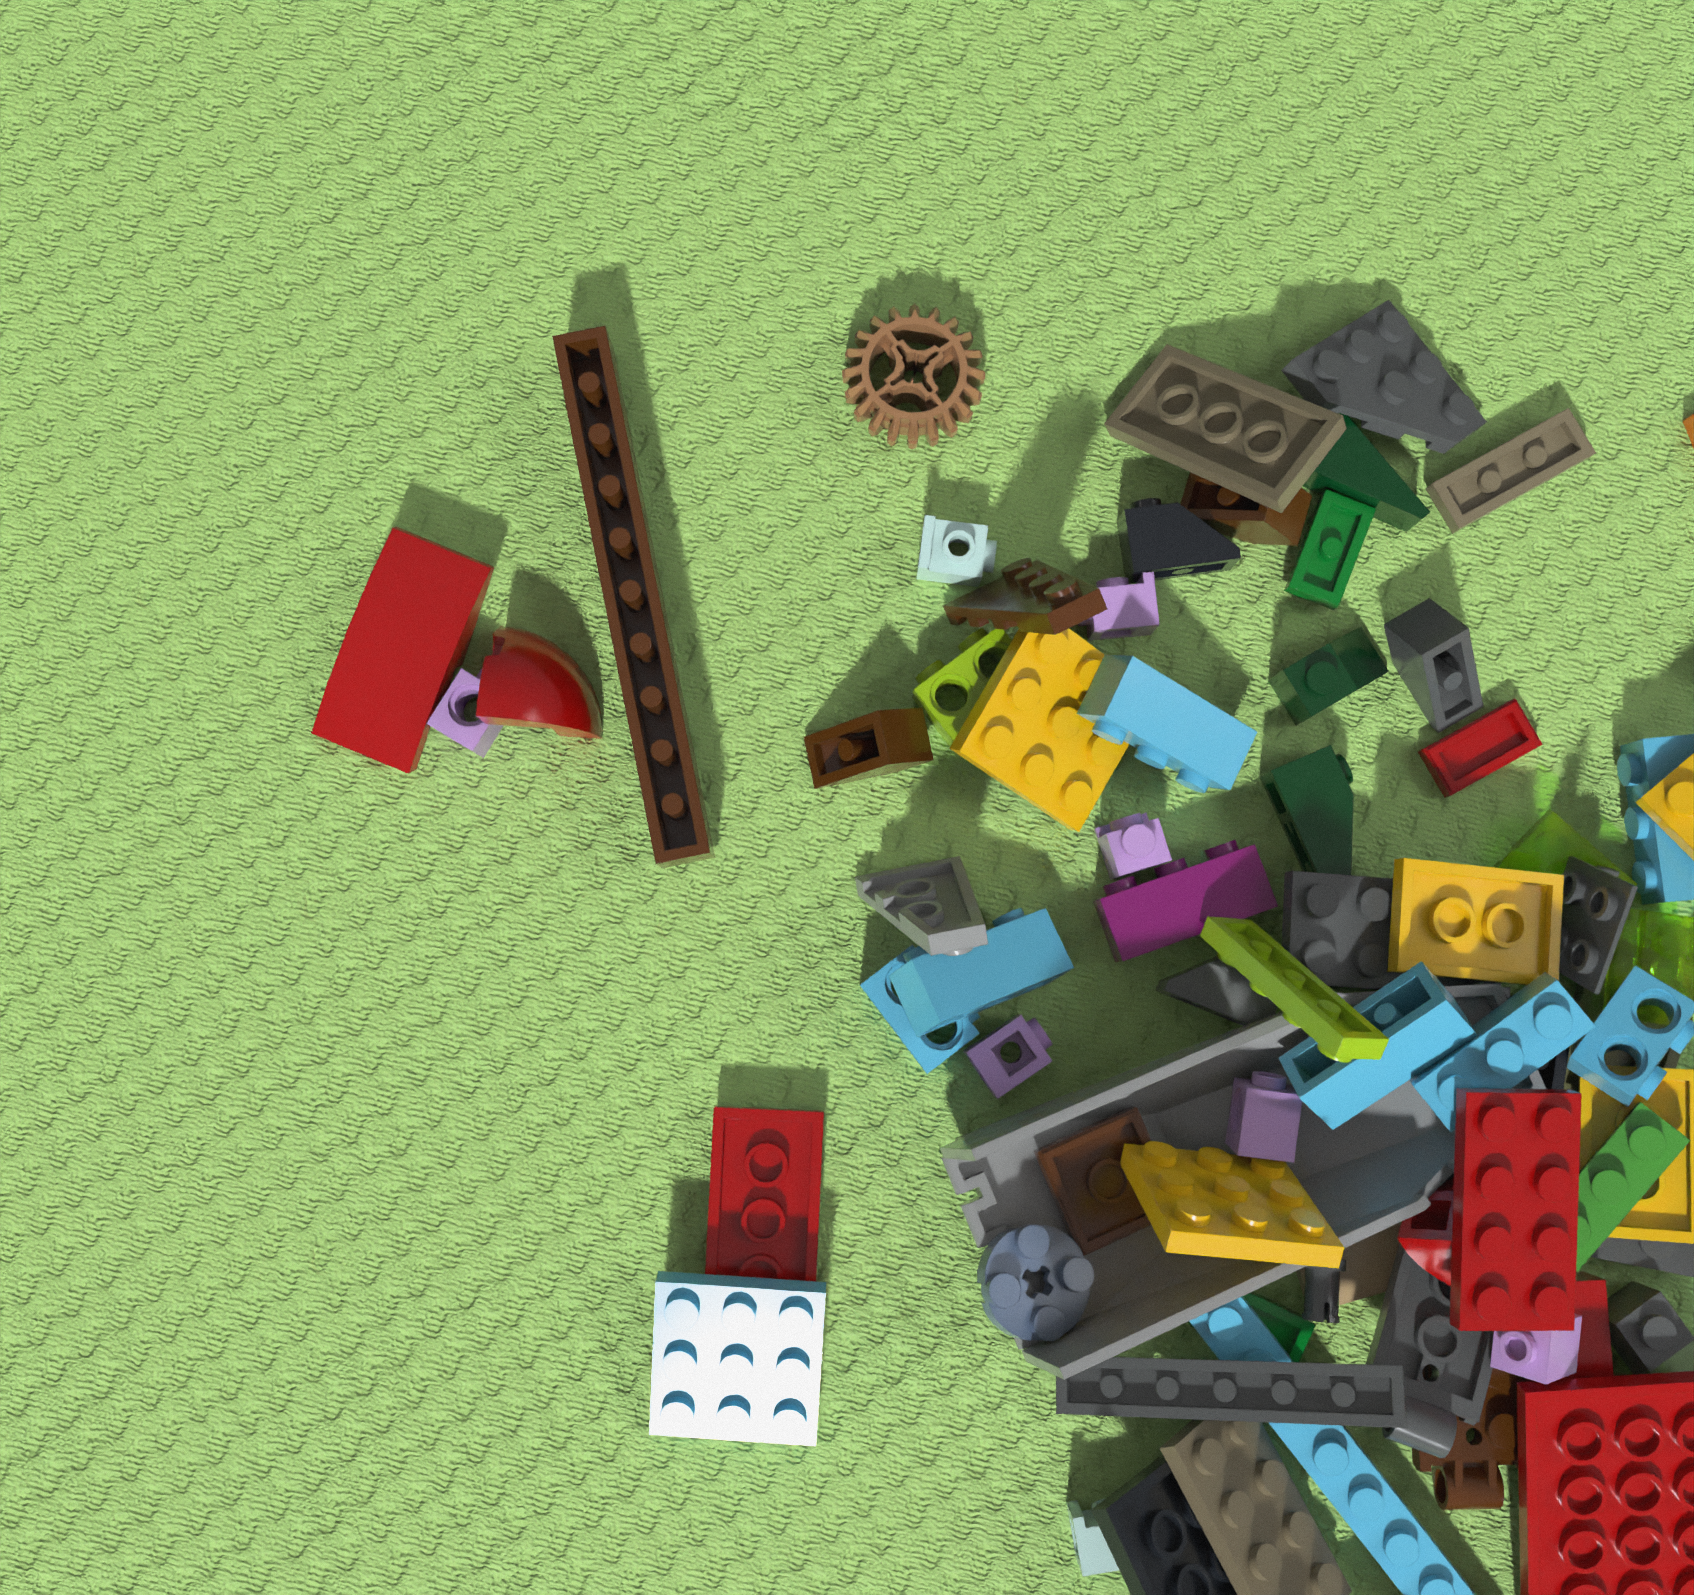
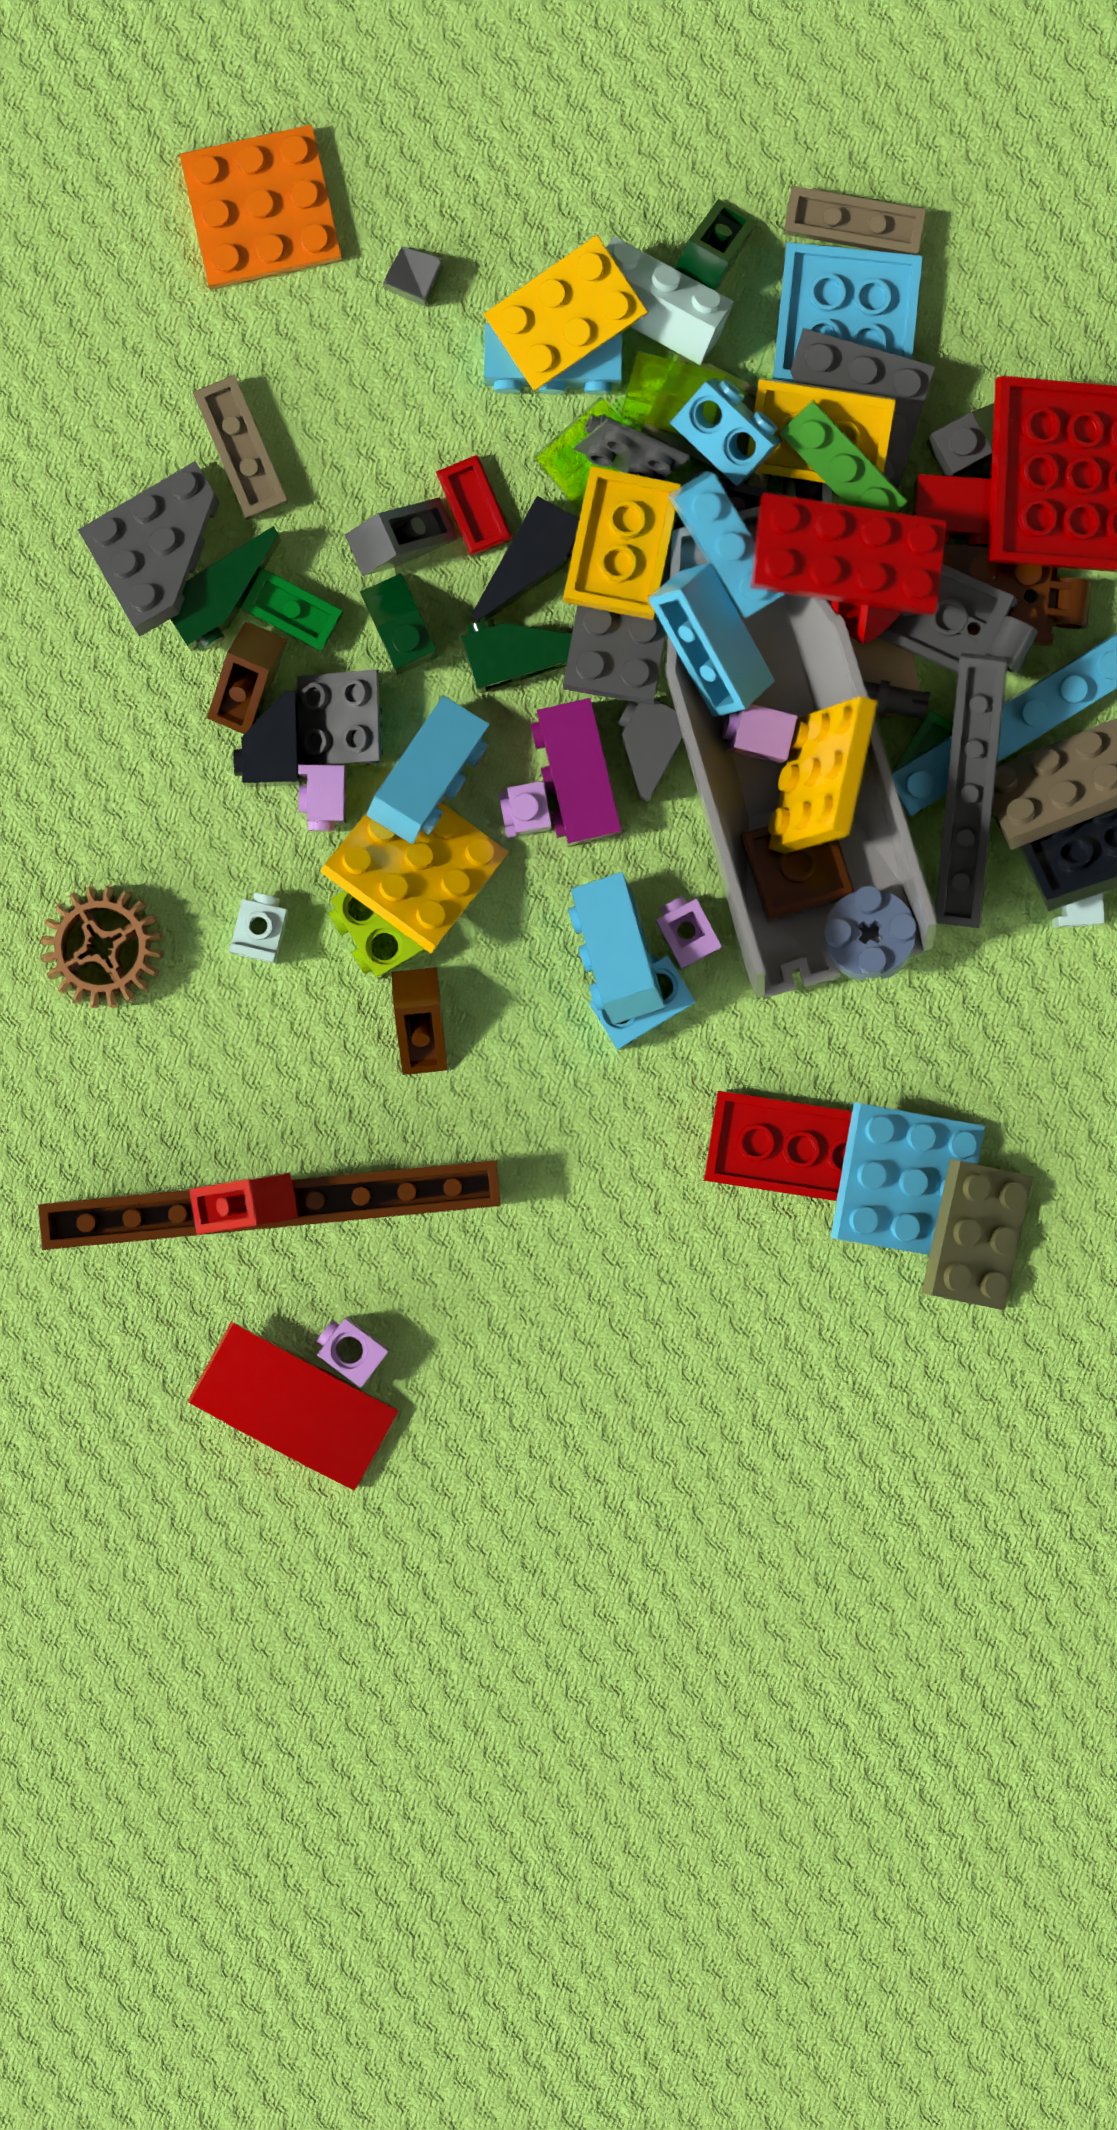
camera: 85 degrees left, 5 degrees up
(536, 686) = (337, 1292): red brick -> none
(626, 558) = (243, 1203): none -> red slope
(680, 1452) = (977, 1234): none -> olive plate
(928, 905) = (557, 986): light grey wing -> none
(1029, 597) = (313, 874): reddish brown wing -> none
(1212, 619) = (339, 718): none -> dark grey hinge
(1226, 427) = (182, 691): dark tan plate -> none
(1293, 988) = (657, 704): lime plate -> none
(1429, 818) = (534, 555): none -> black slope
(1537, 1354) = (963, 541): lavender brick -> none

